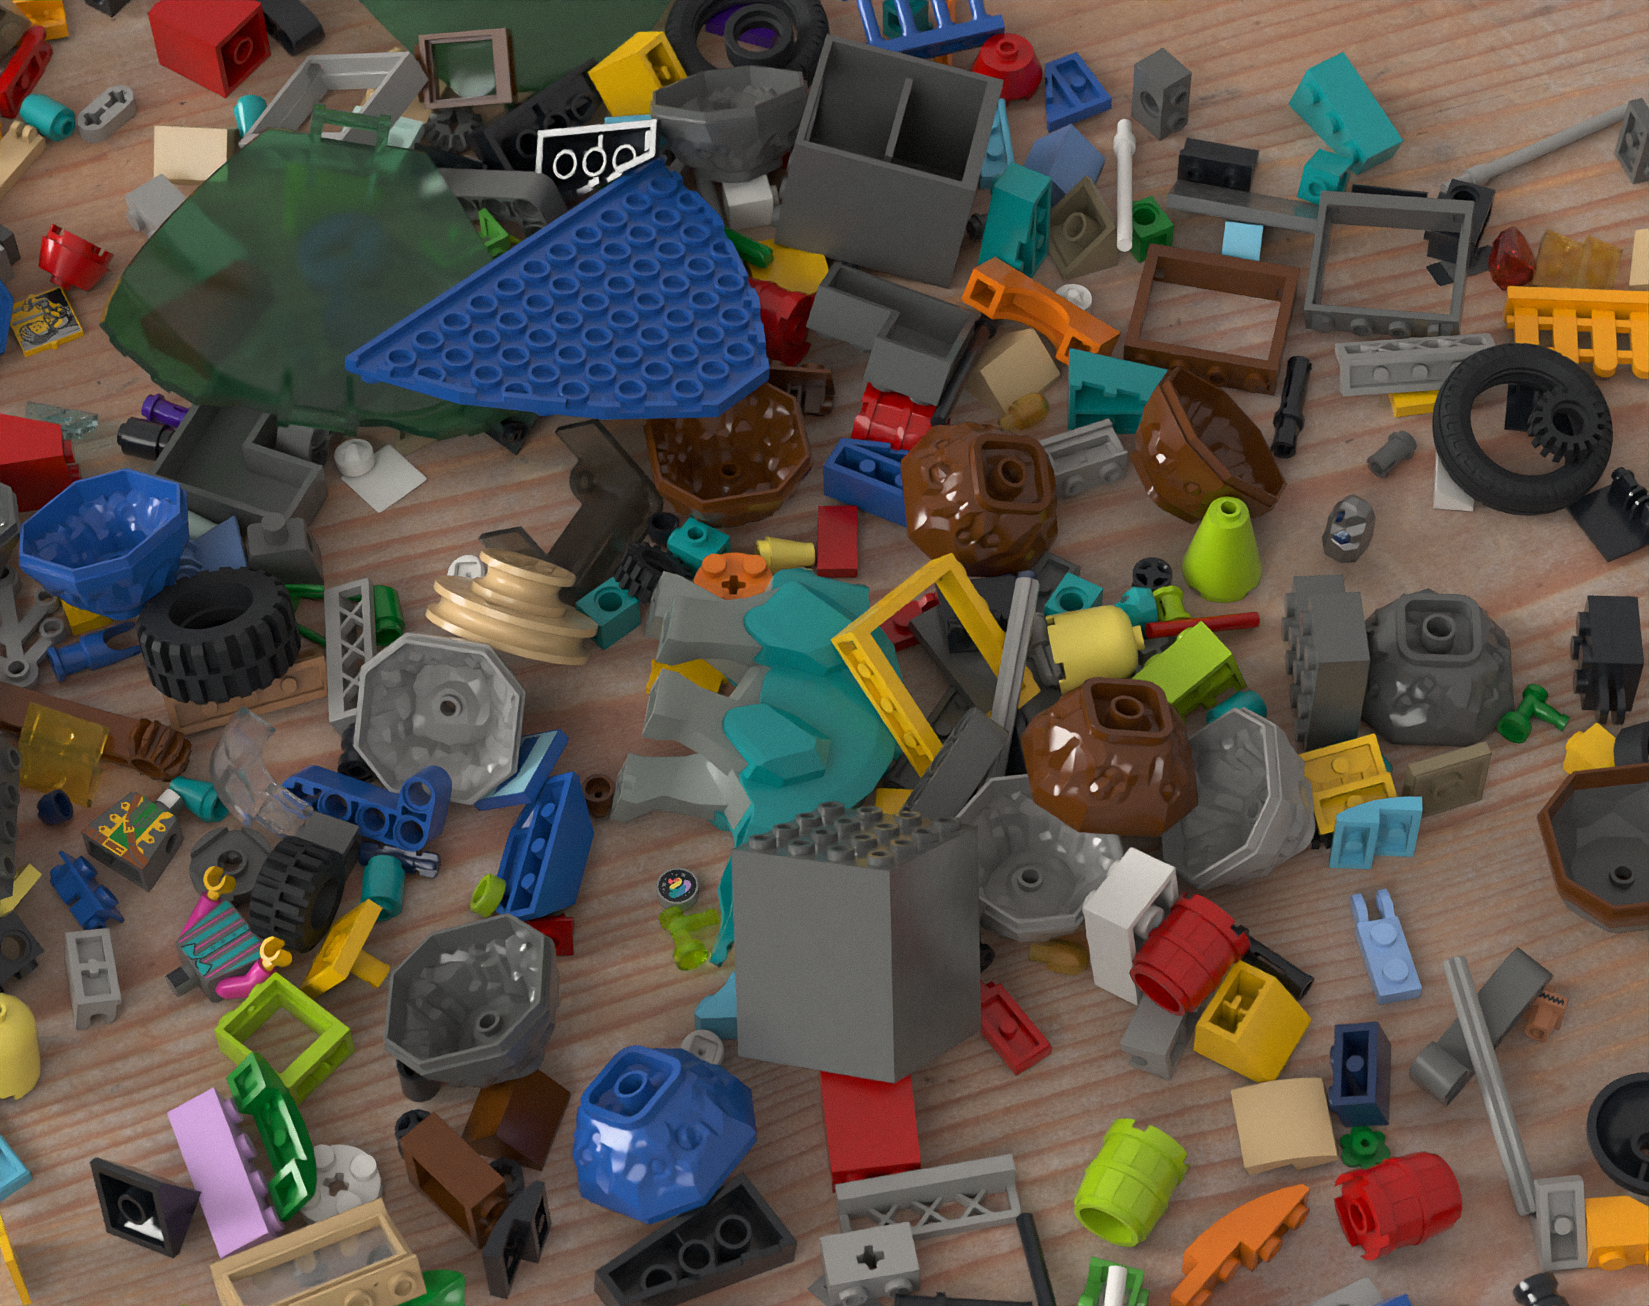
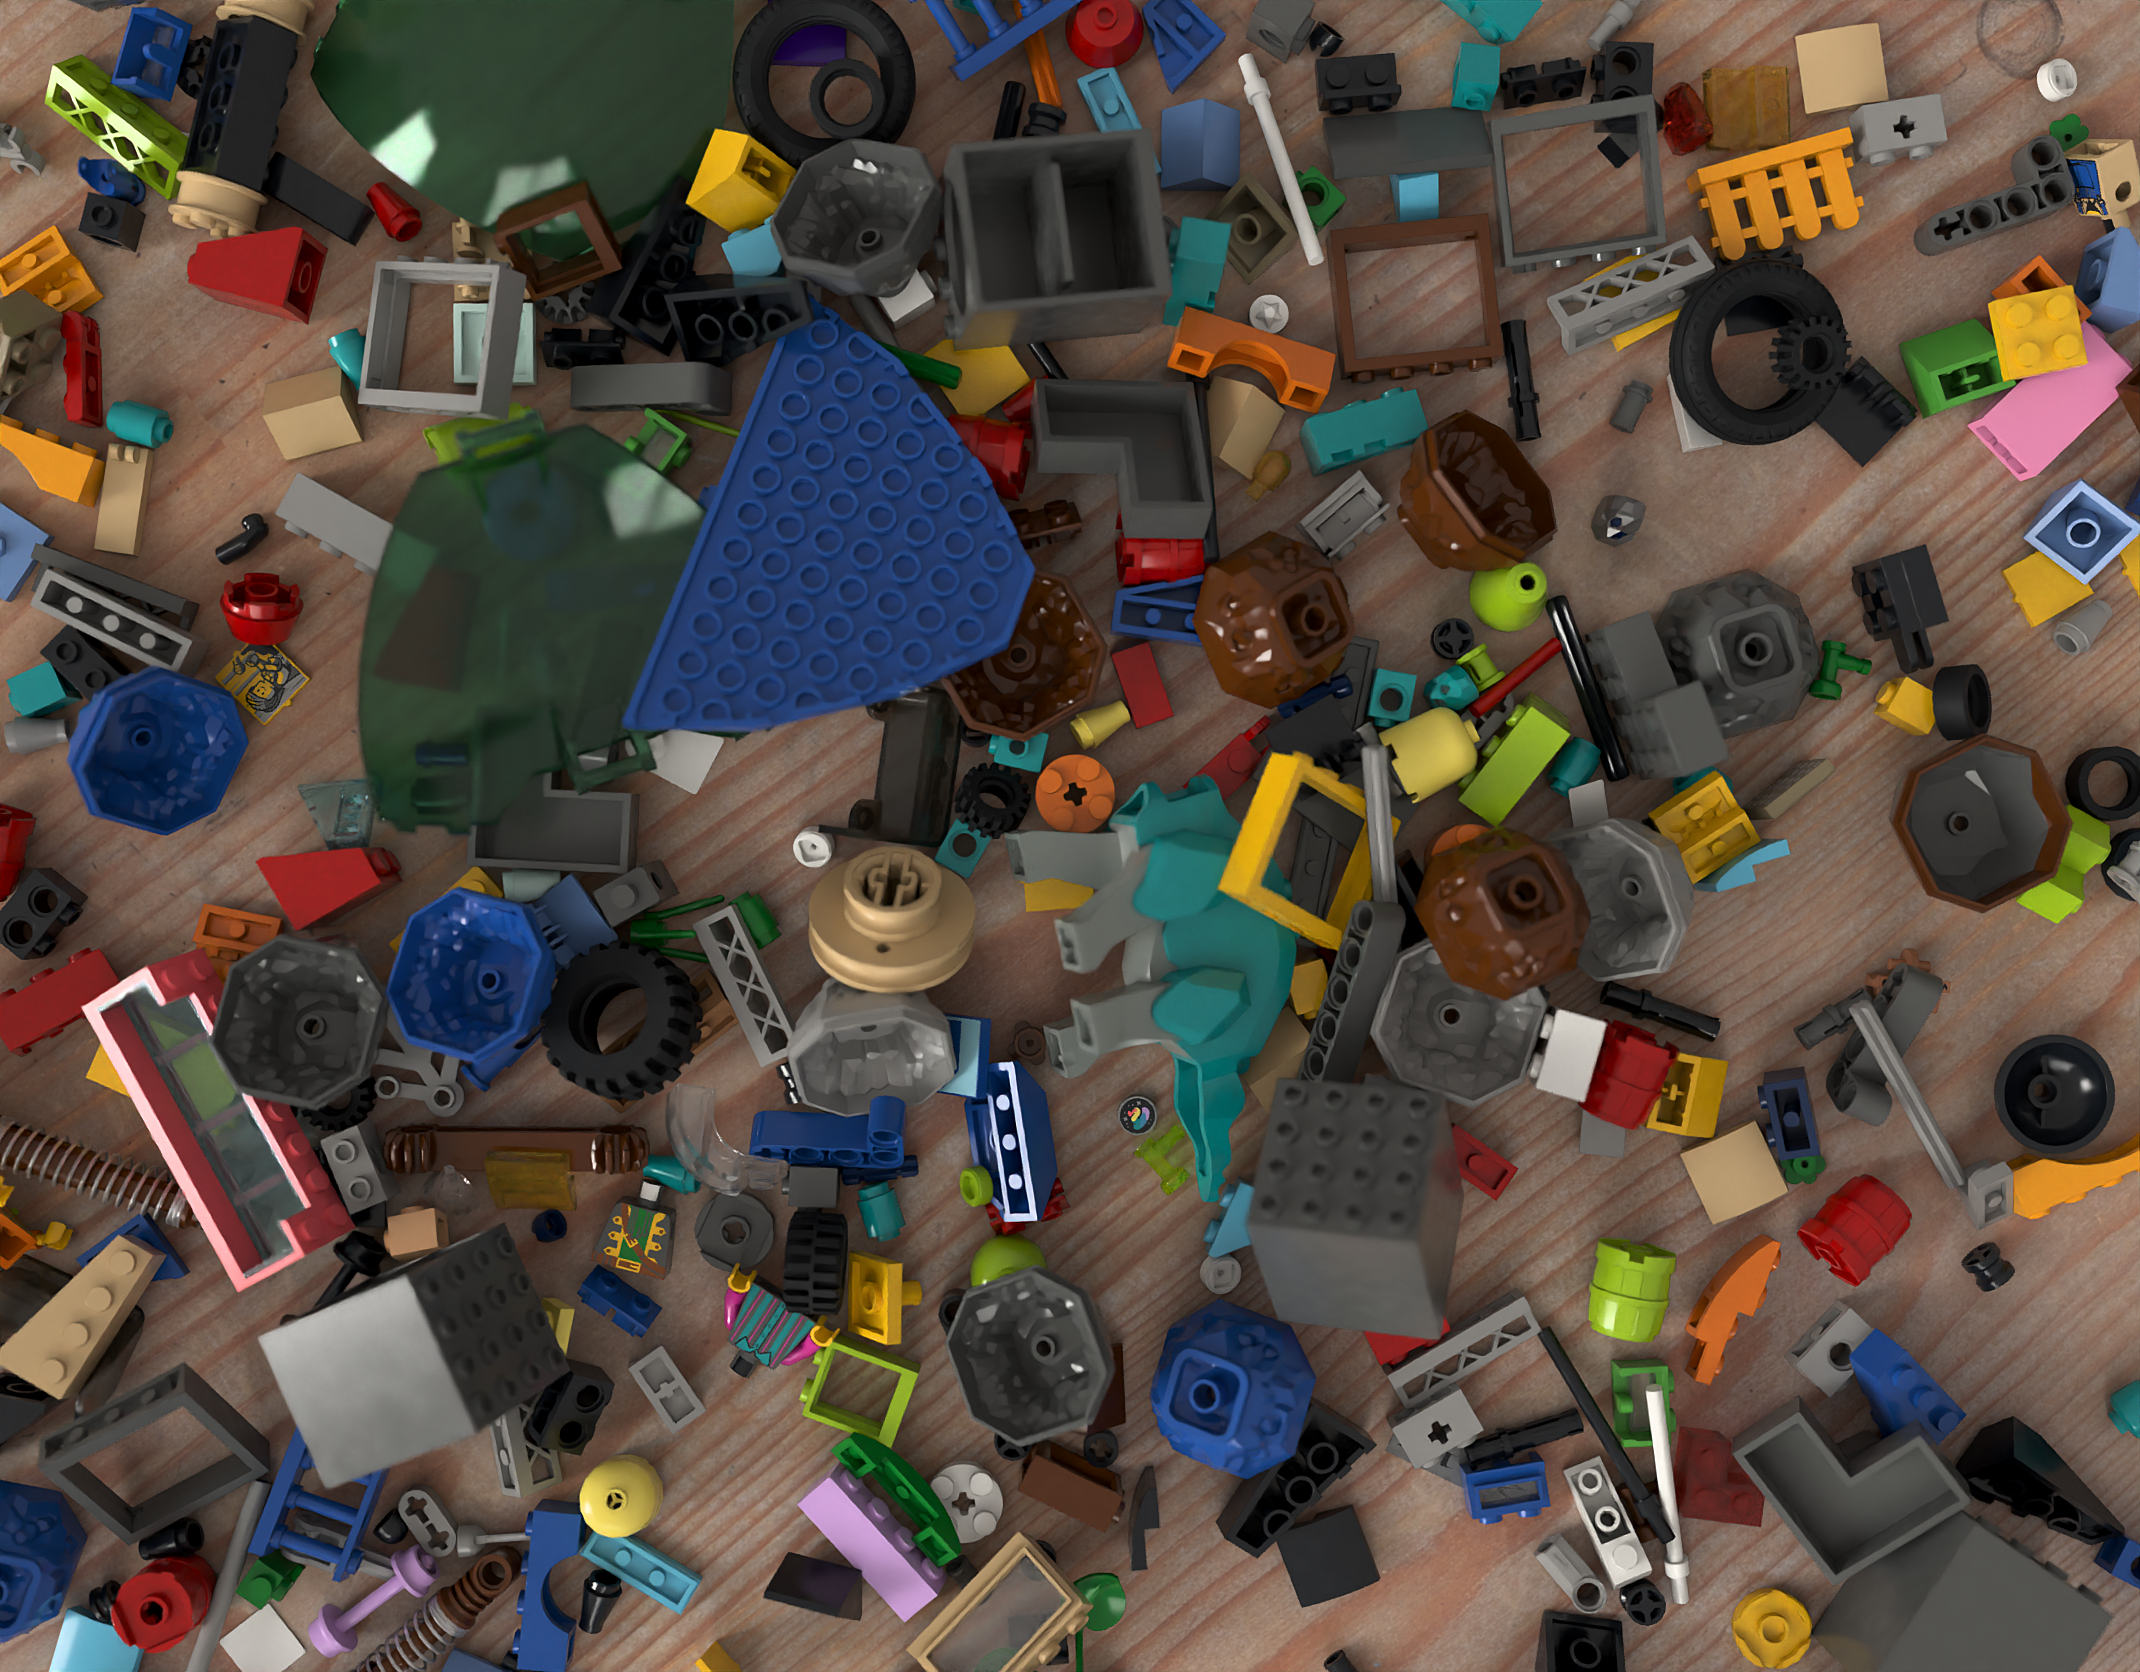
camera: 15 degrees left, 35 degrees up
(96, 216) = (244, 542): none -> black arm
(106, 114) = (192, 392): light grey beam -> none
(340, 37) = (394, 212): none -> red cone
(1199, 127) = (1327, 38): none -> black hinge
(1272, 653) = (1587, 688): none -> black axle
(1385, 950) = (1770, 965): light blue hinge -> none
(1410, 1021) = (1831, 1021): none -> dark grey pin

